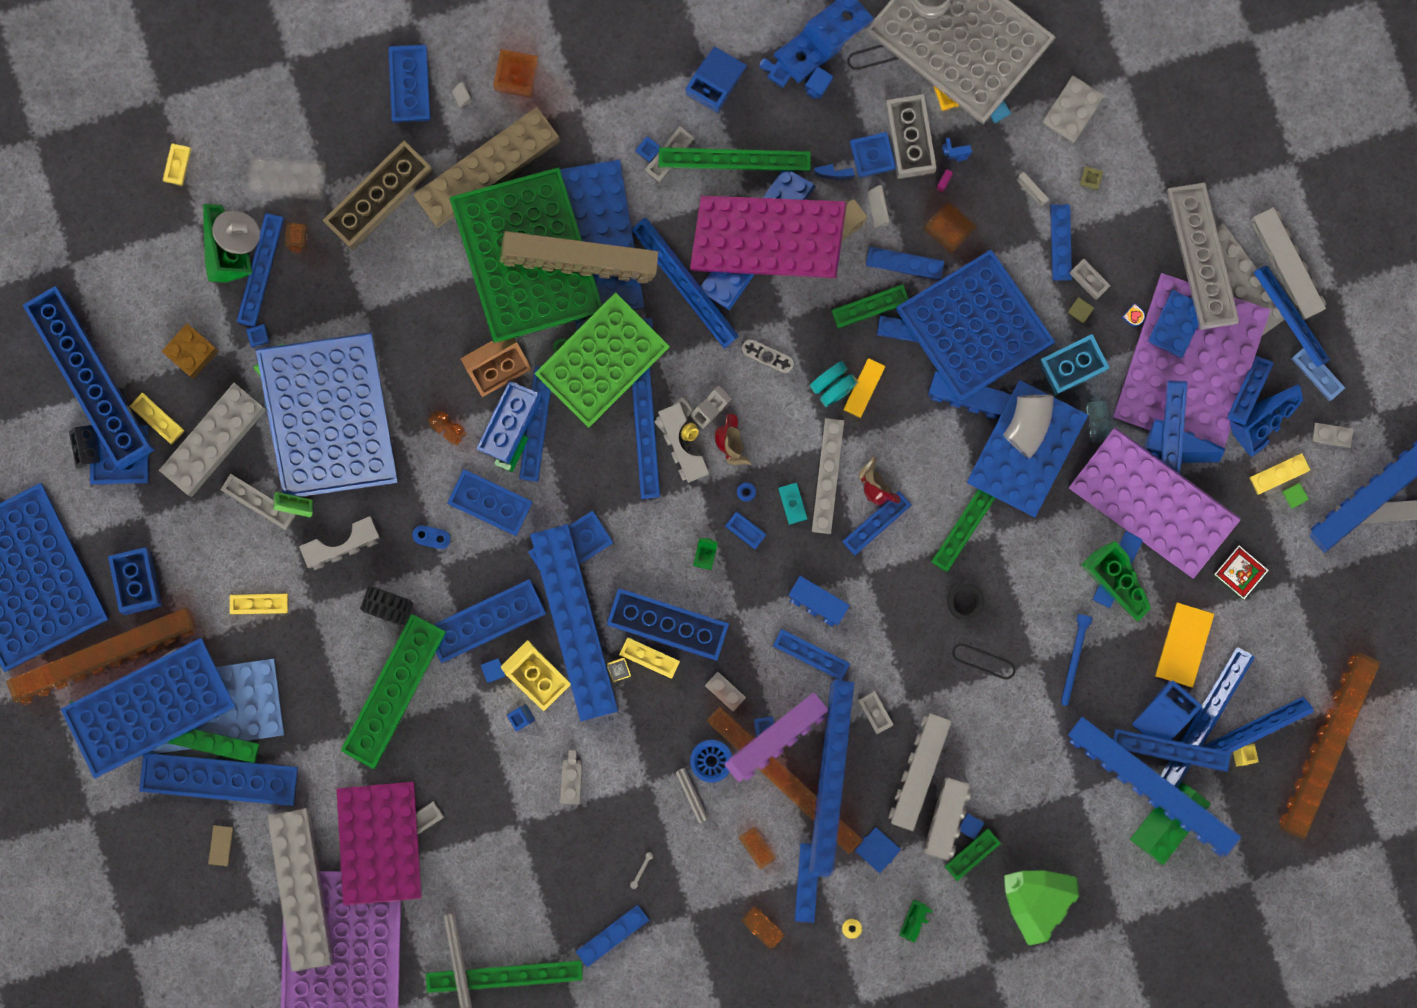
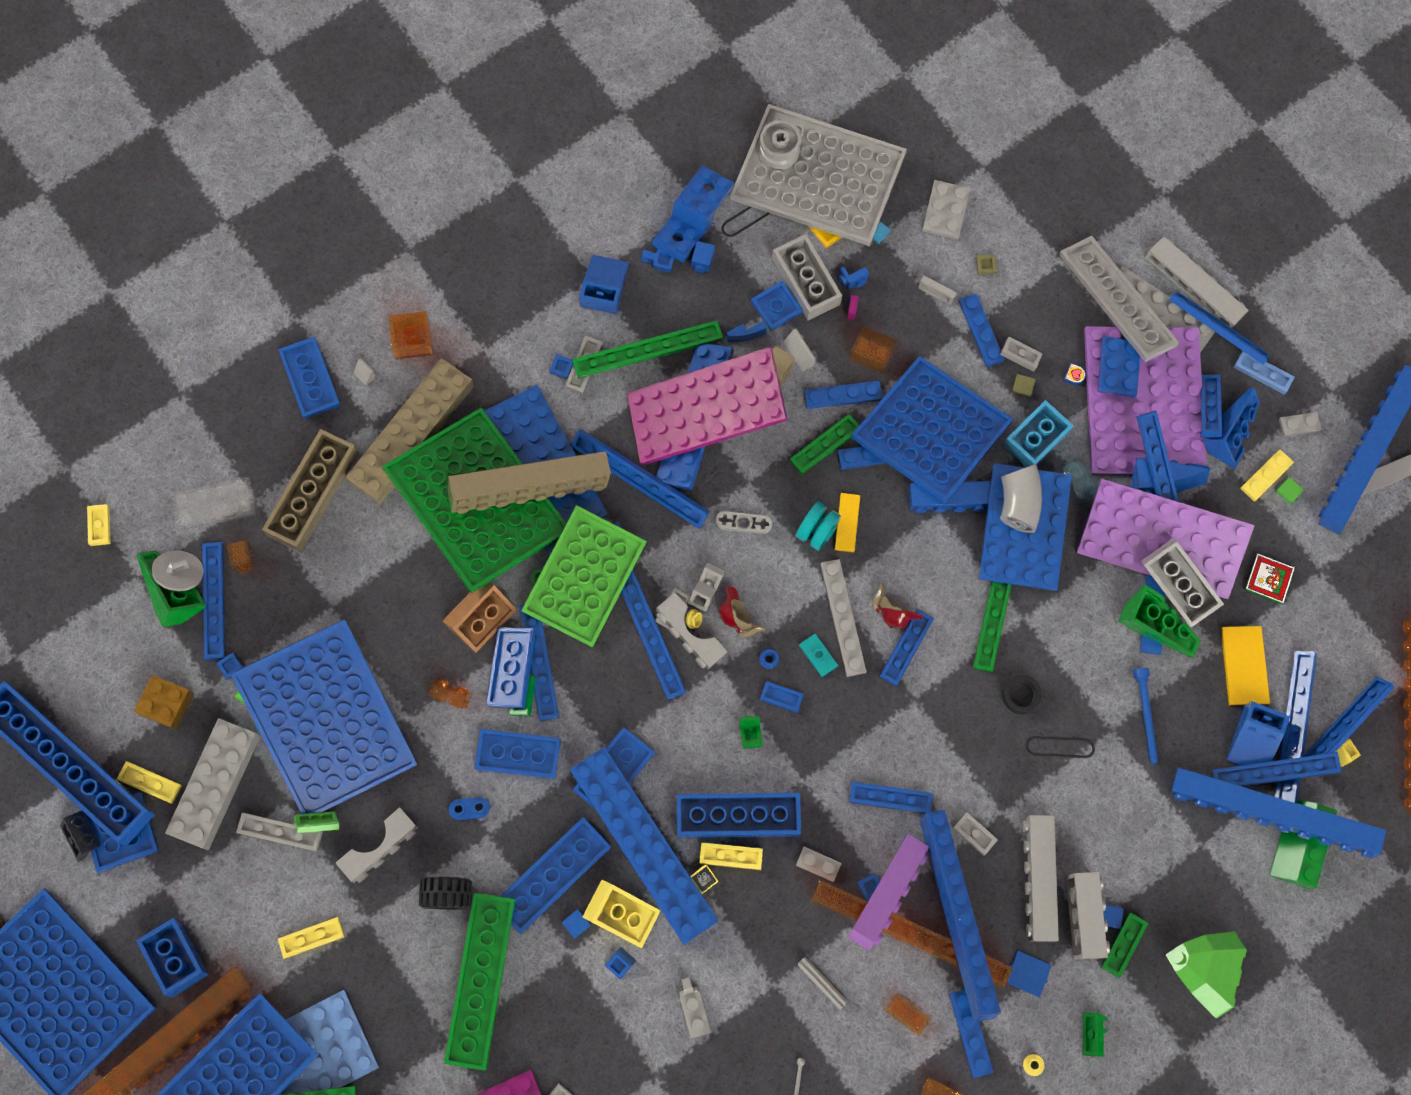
camera: 25 degrees left, 10 degrees down
(697, 750) = (843, 927): blue wheel -> none
(818, 601) = (878, 742): blue brick -> none
(1152, 550) = (1182, 582): none -> light grey brick

